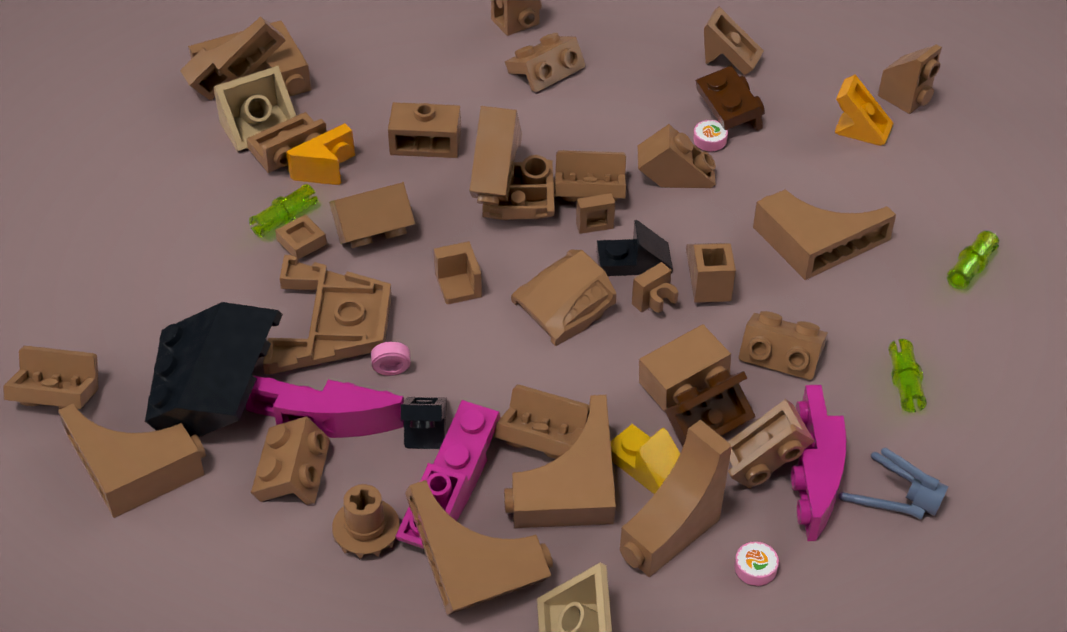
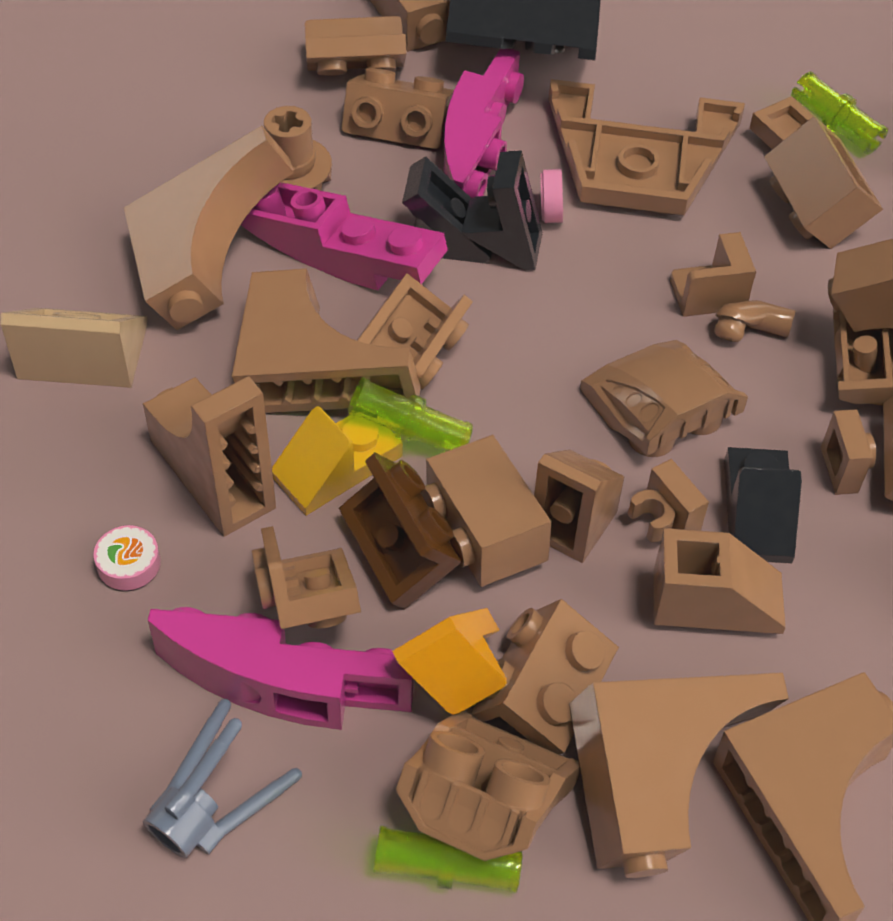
camera: 95 degrees right, 5 degrees up
(226, 493) = (354, 44): none -> medium nougat bracket
(428, 369) = (508, 216): none -> black slope
(487, 259) = (753, 314): none -> medium nougat arm
(621, 413) = (408, 417): none -> clear neon green pin
(666, 319) = (578, 499): none -> medium nougat slope
(792, 369) = (455, 660): none -> light orange slope
(825, 288) = (642, 752): none -> medium nougat arch
(866, 352) = (483, 787): none -> medium nougat slope

